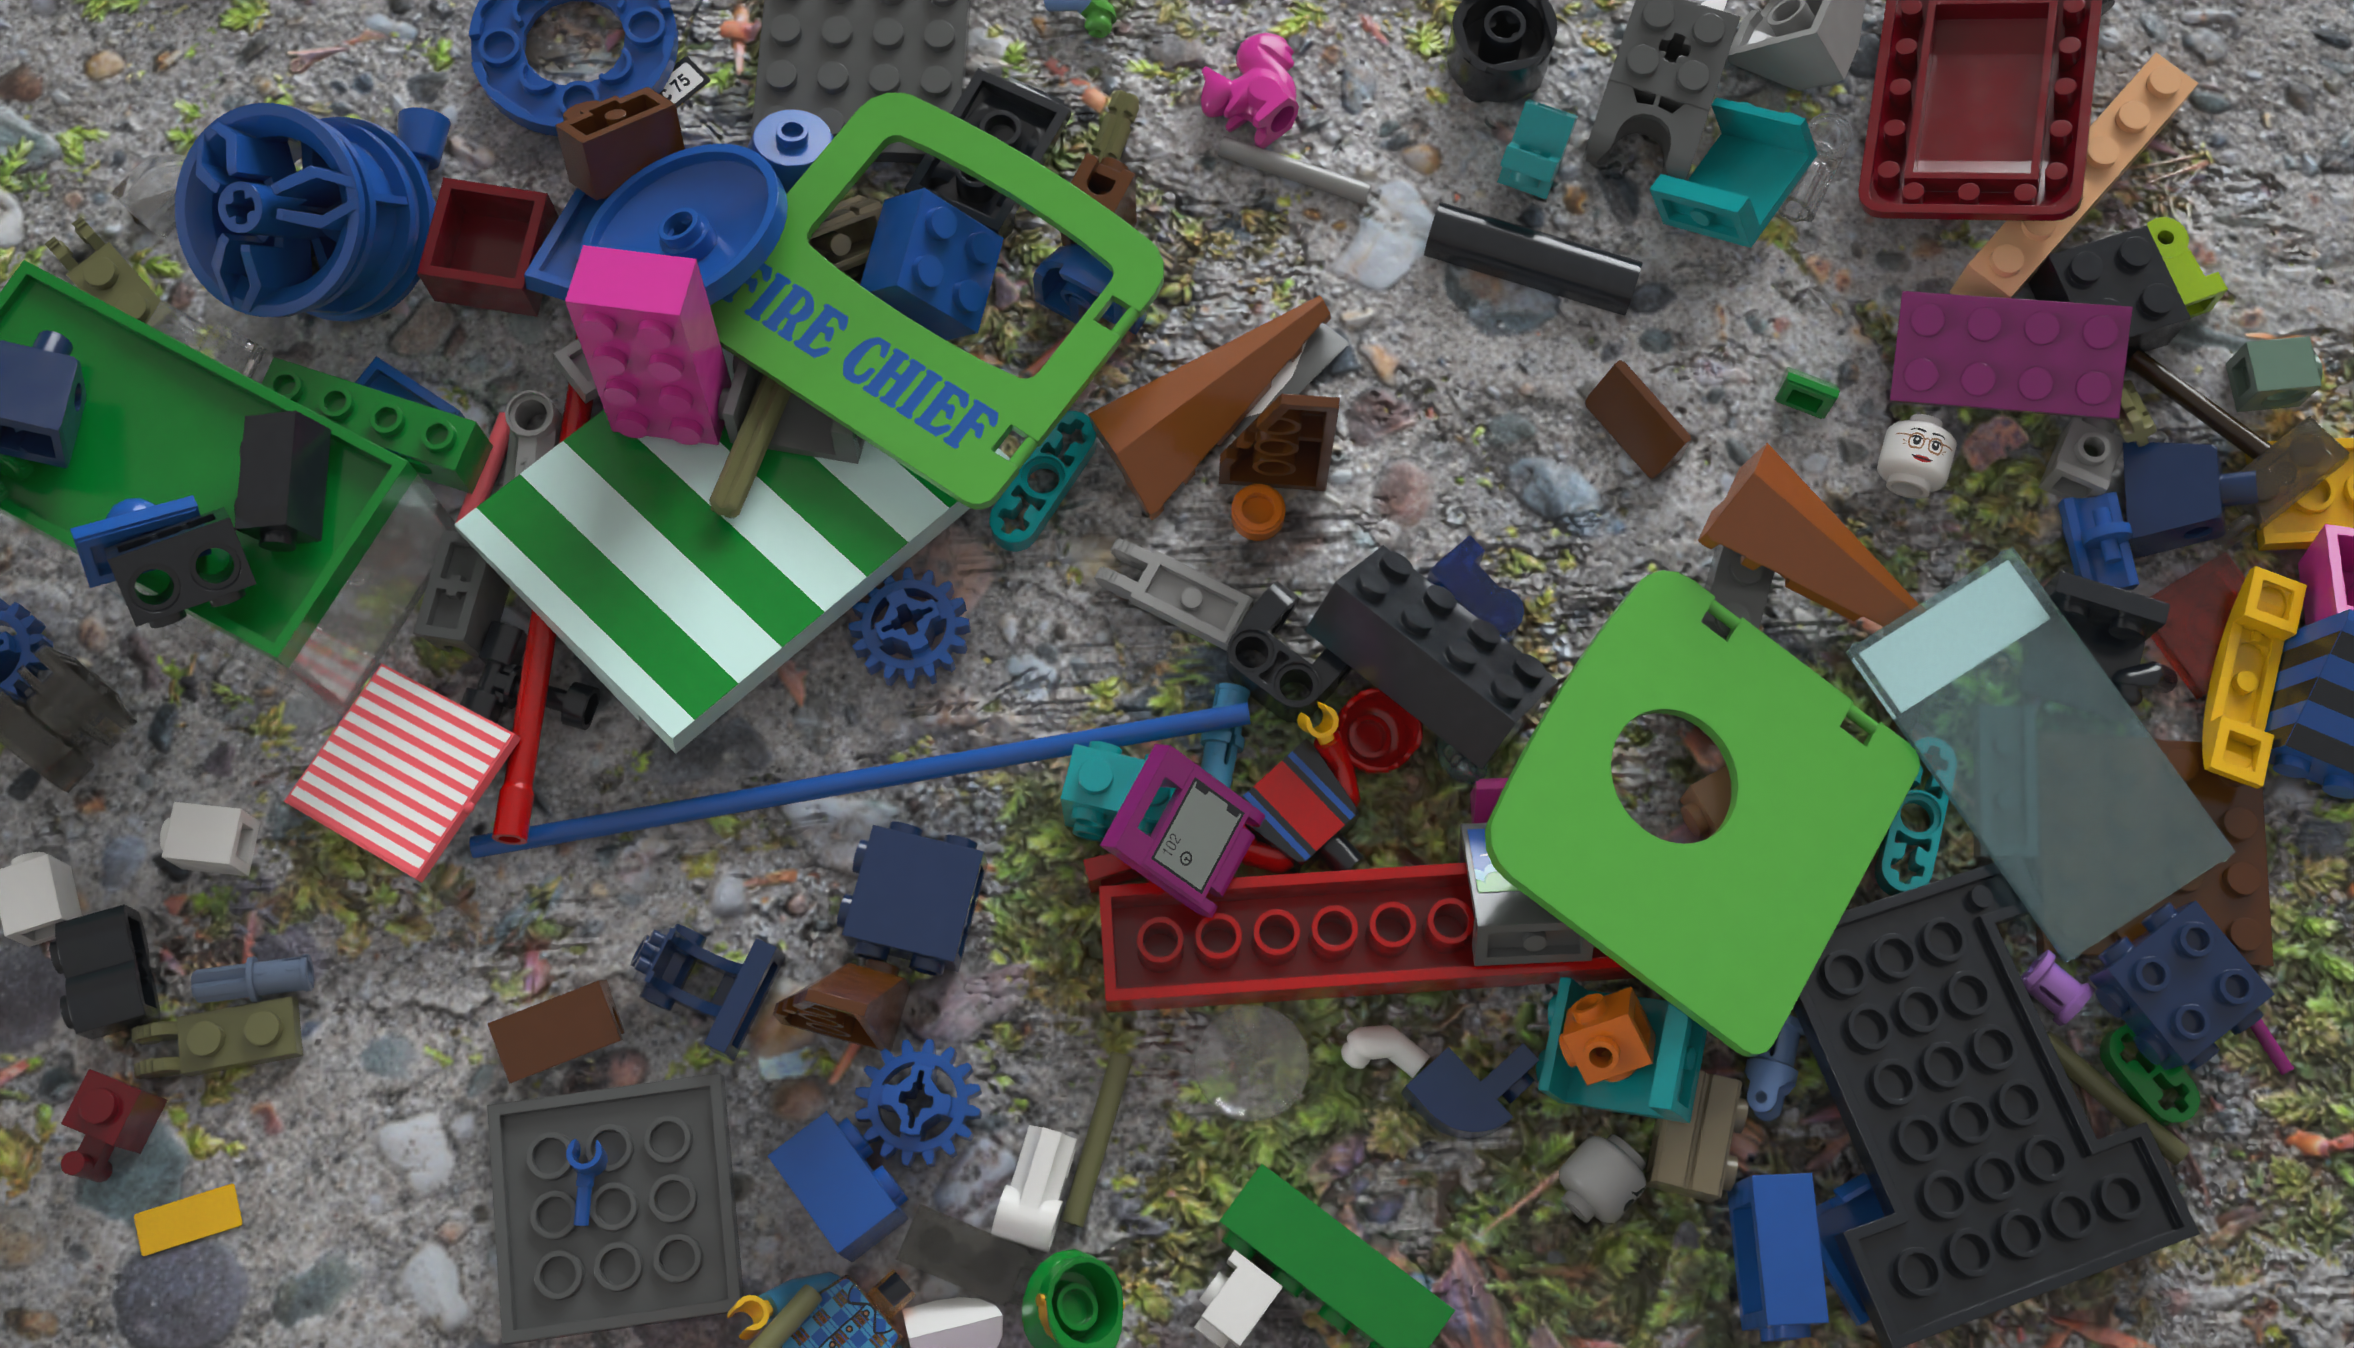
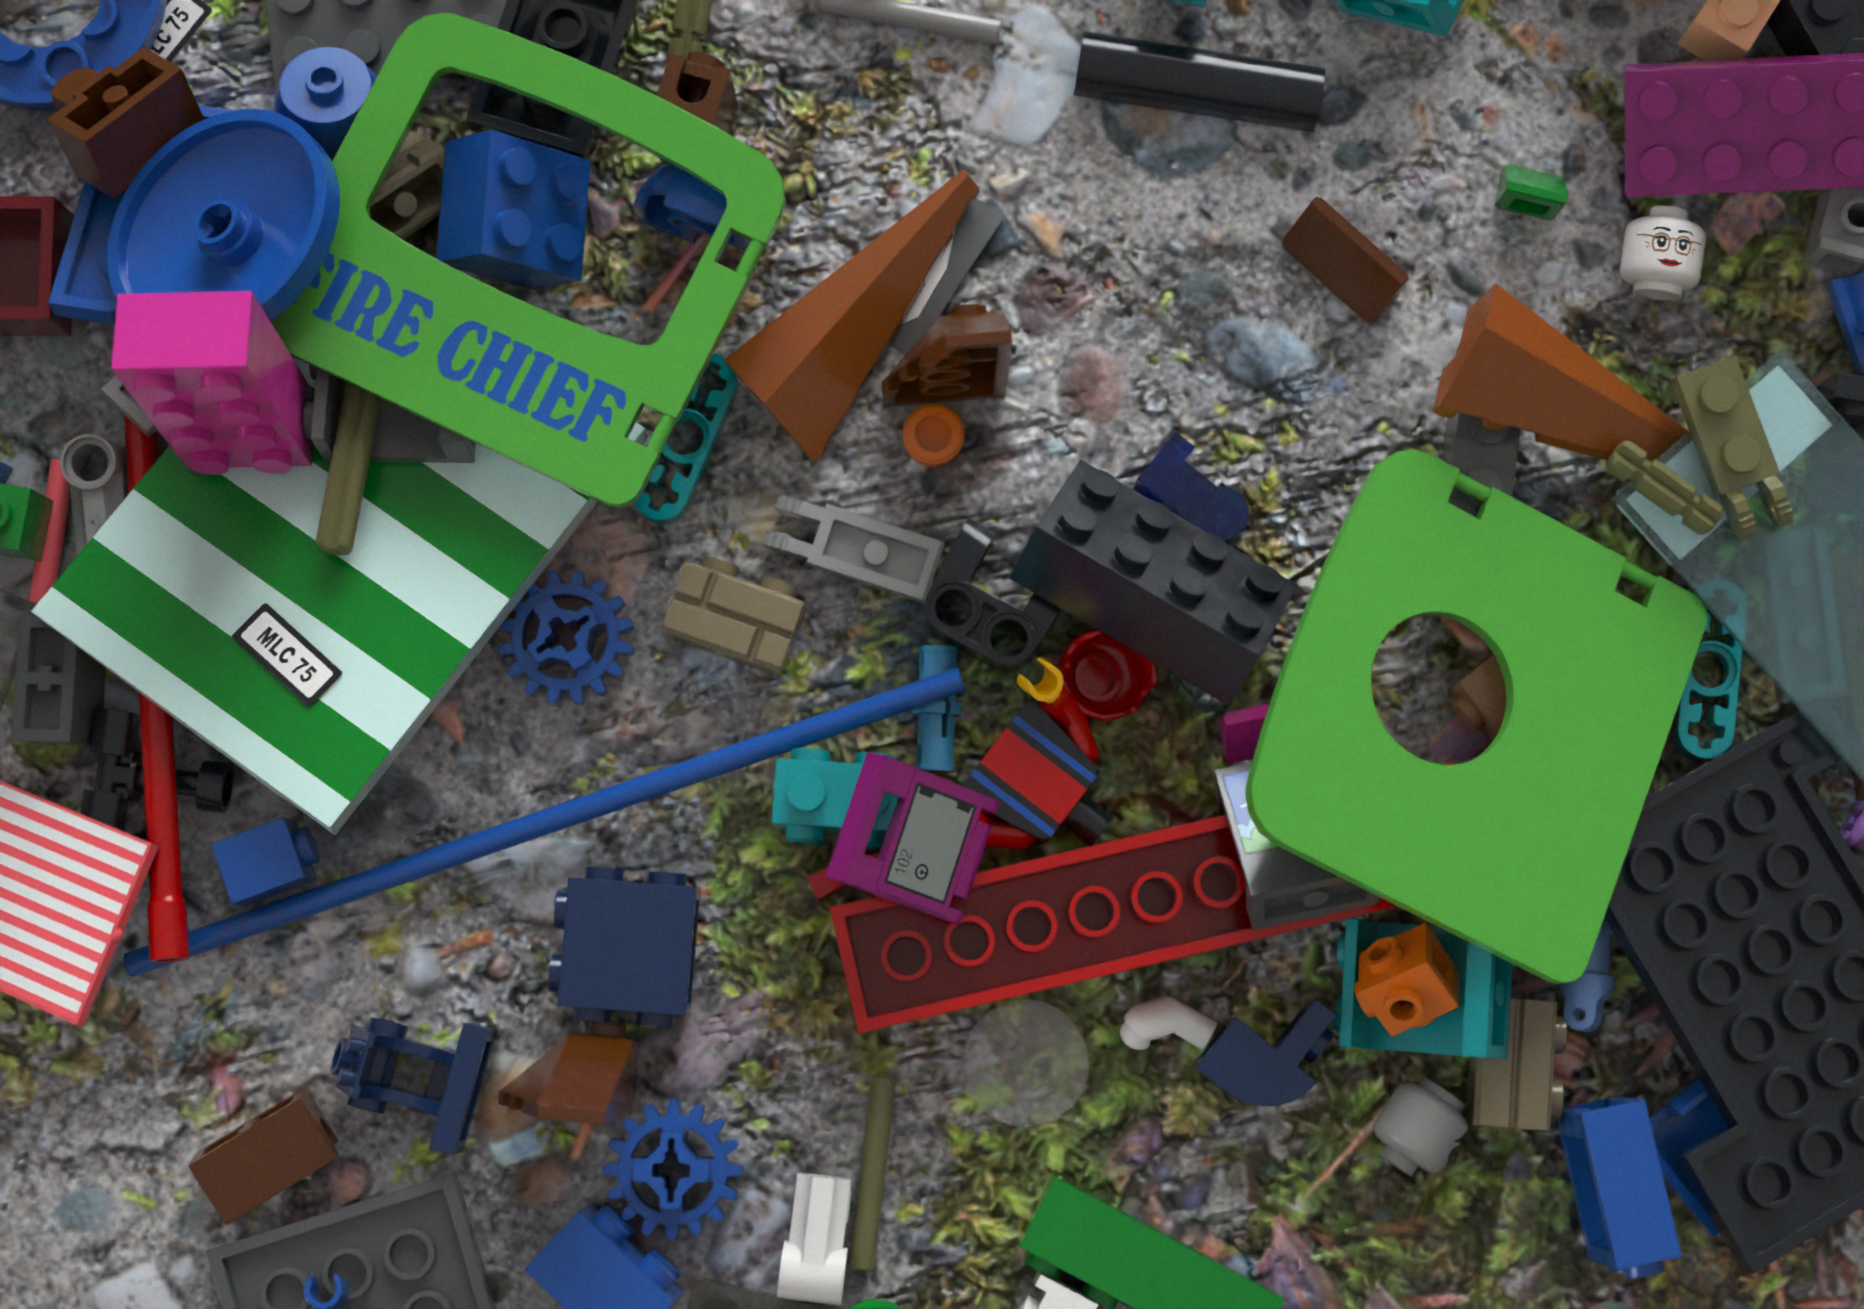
camera: 10 degrees left, 10 degrees up
(611, 772) = (266, 861): none -> blue brick
(665, 592) = (287, 654): none -> sticker
(1059, 632) = (735, 616): none -> dark tan brick
(1894, 645) = (1664, 487): none -> olive axle
(1959, 617) = (1732, 443): none -> olive hinge

